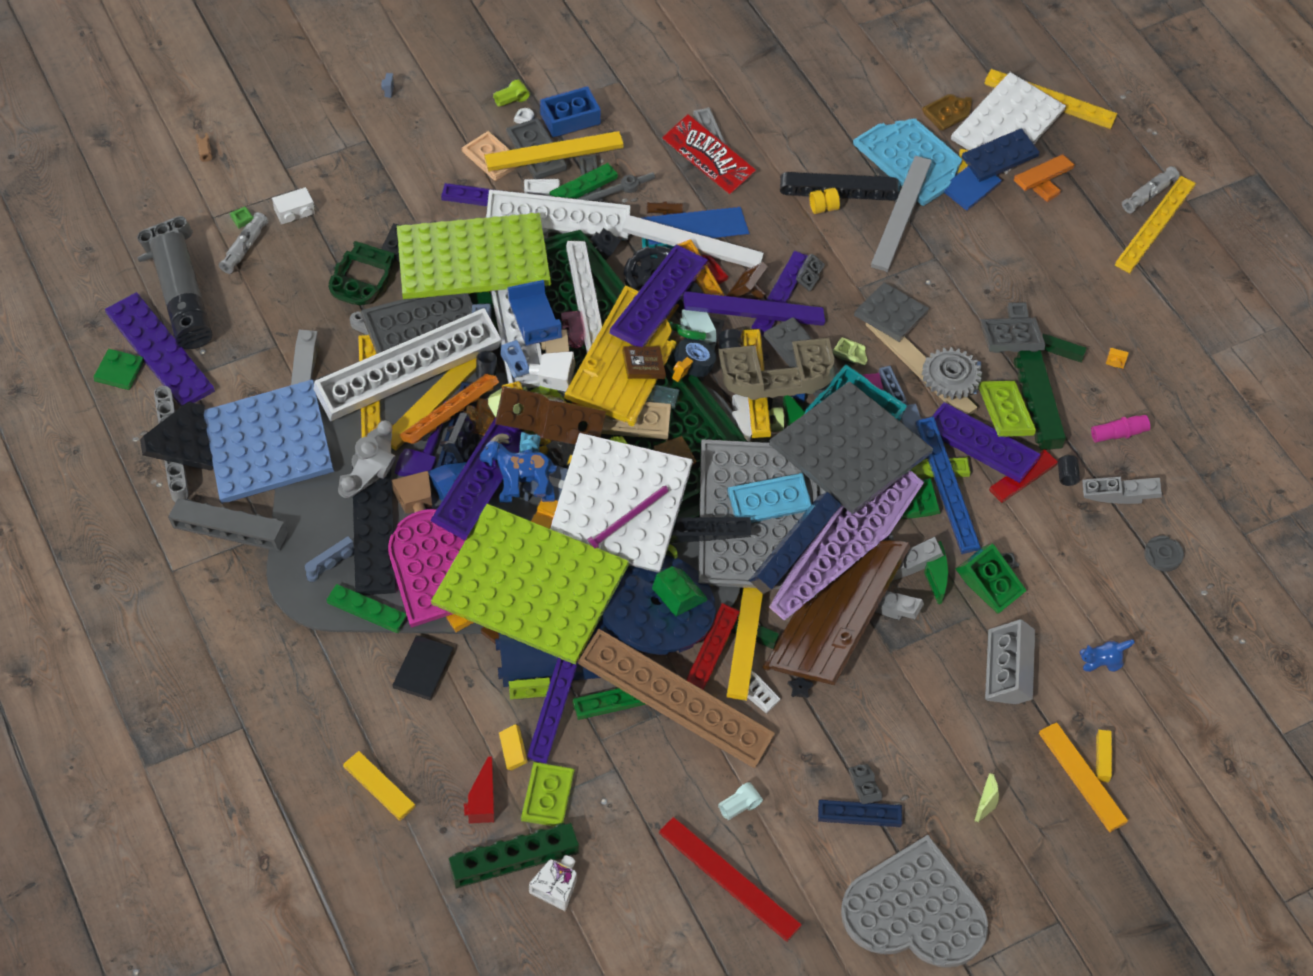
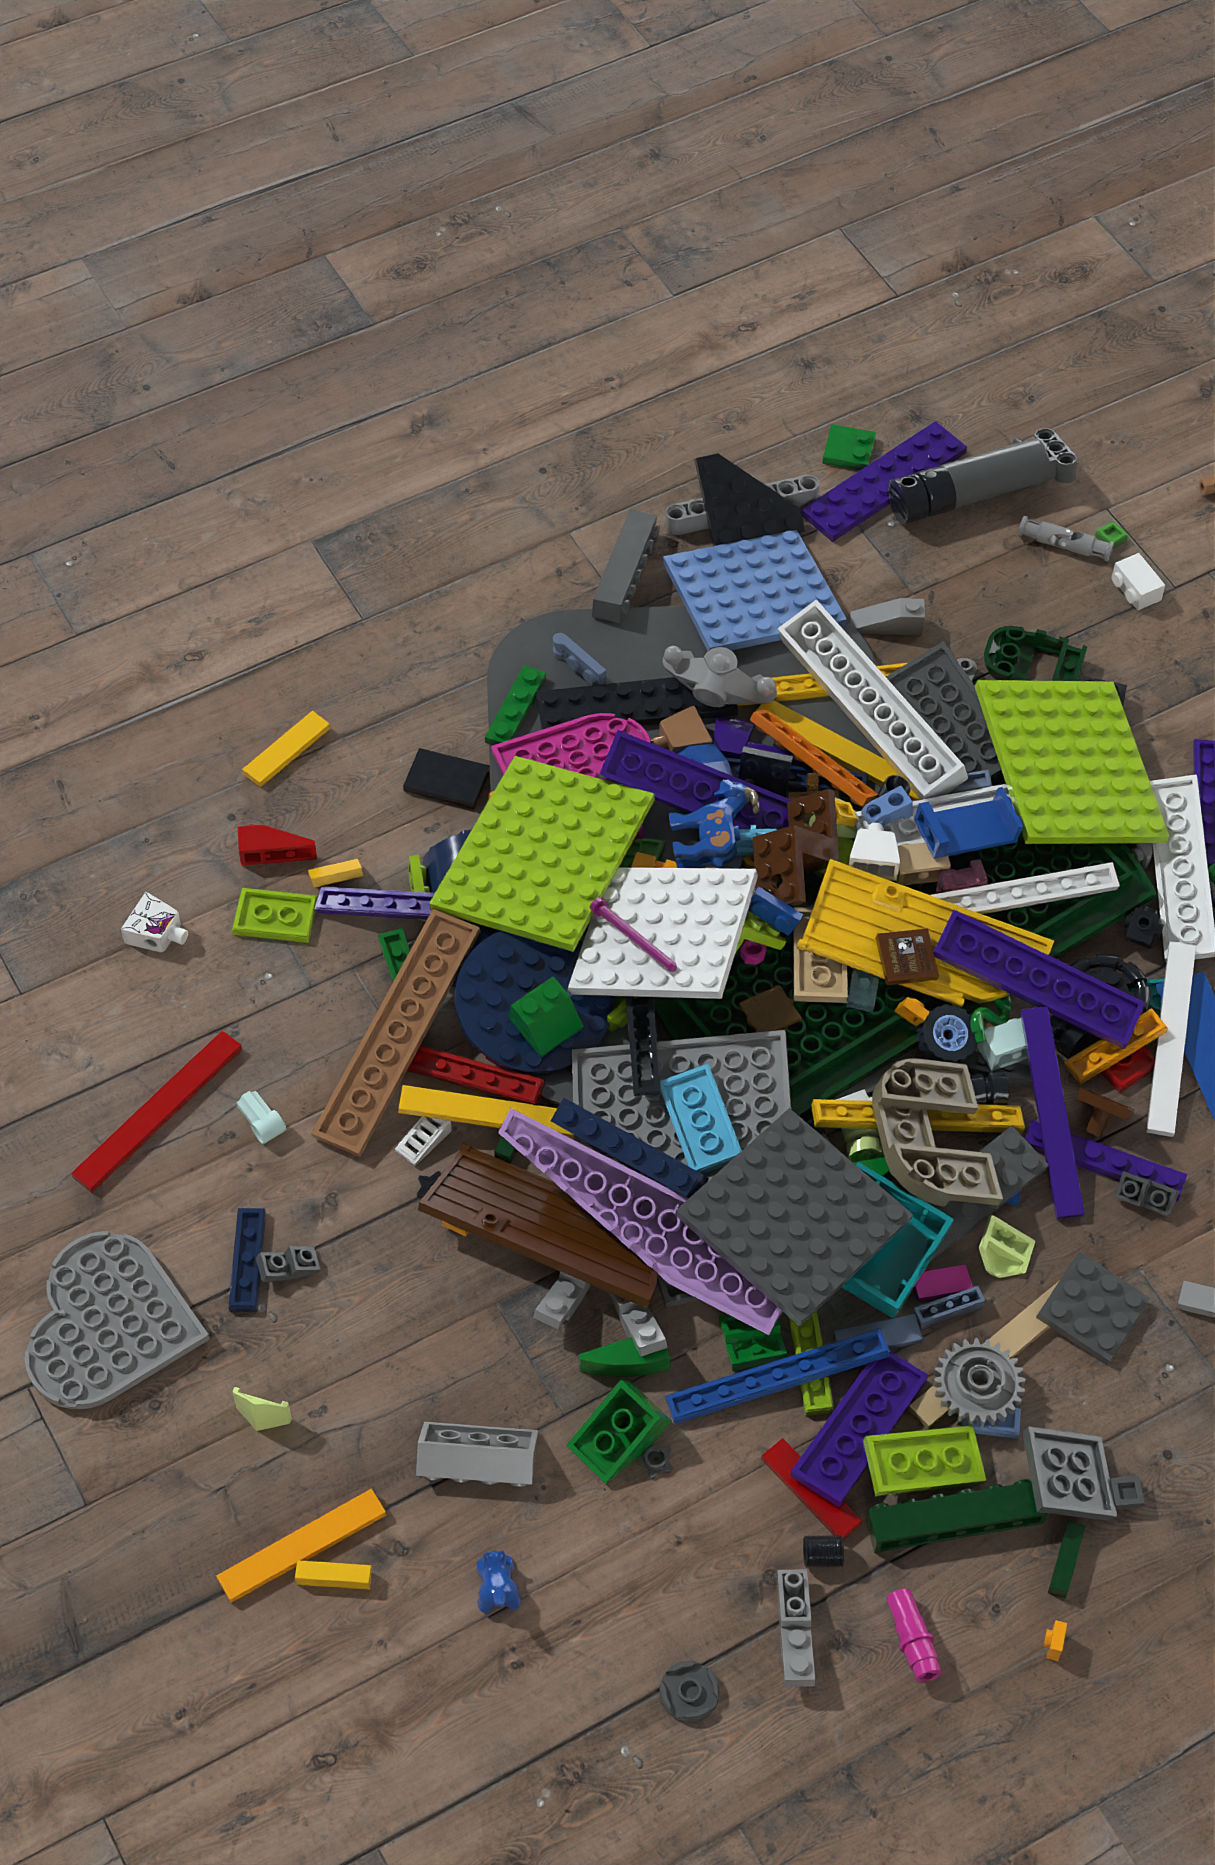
camera: 90 degrees right, 0 degrees up
(507, 864) = (184, 867): dark green brick -> none
(608, 429) = (774, 911): none -> blue plate

